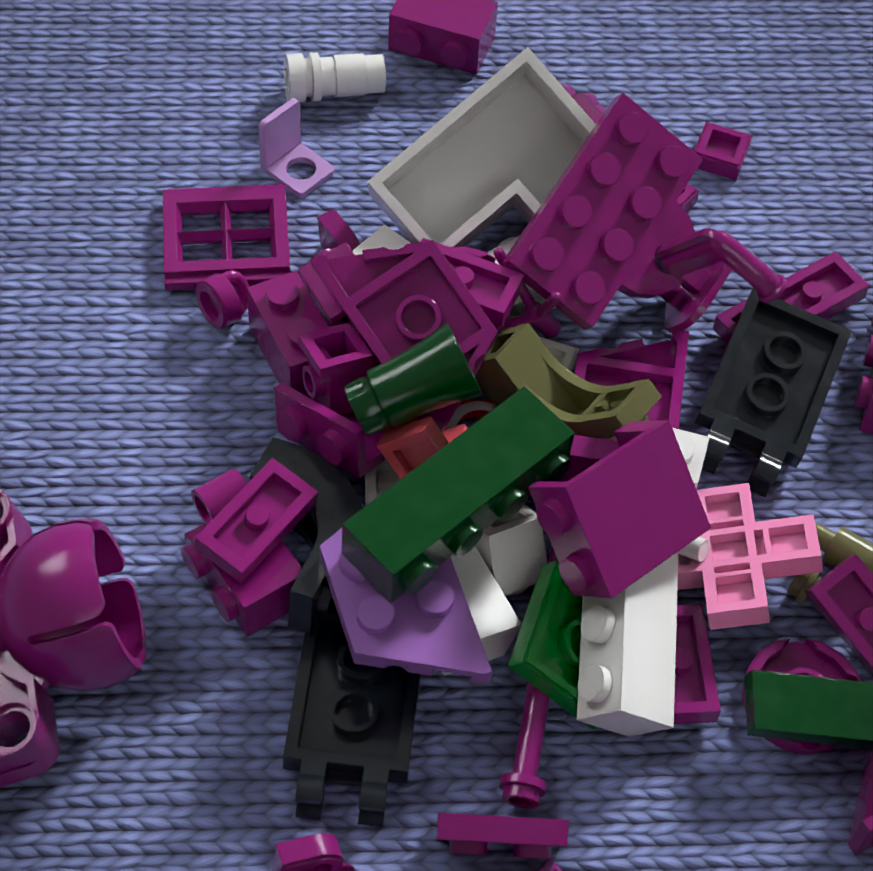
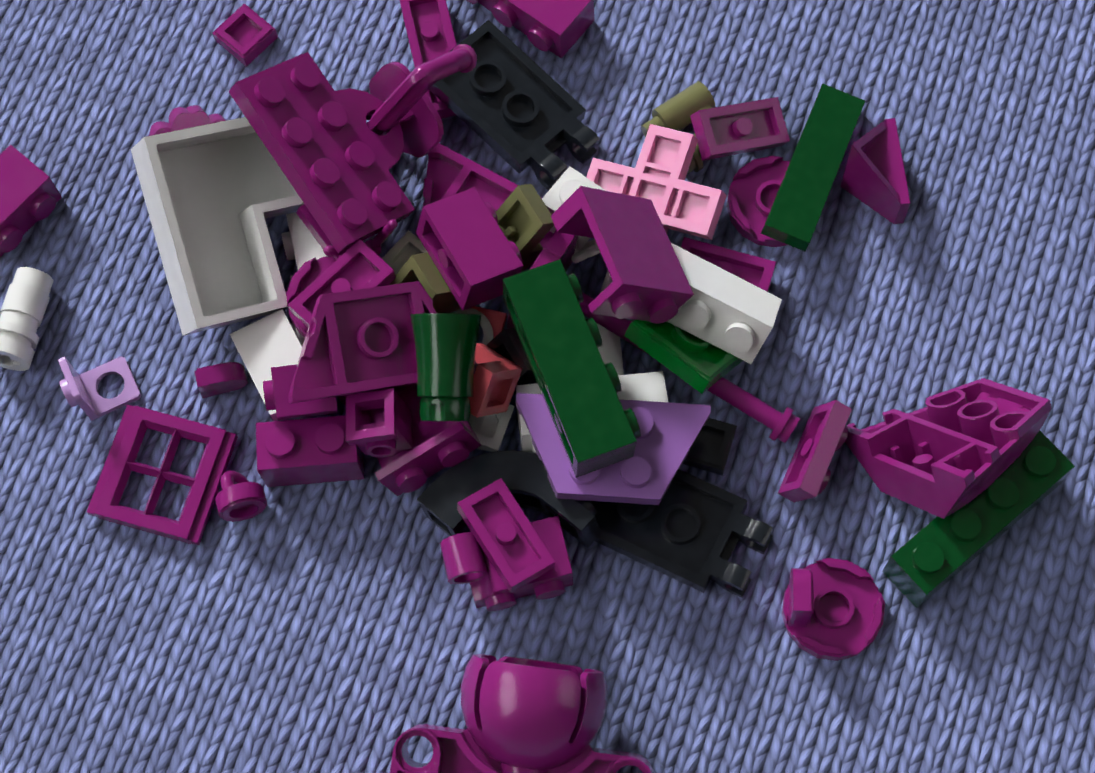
camera: 60 degrees left, 15 degrees up
(466, 716) = (712, 446): none -> black tile
(564, 362) = (468, 247): none -> magenta brick

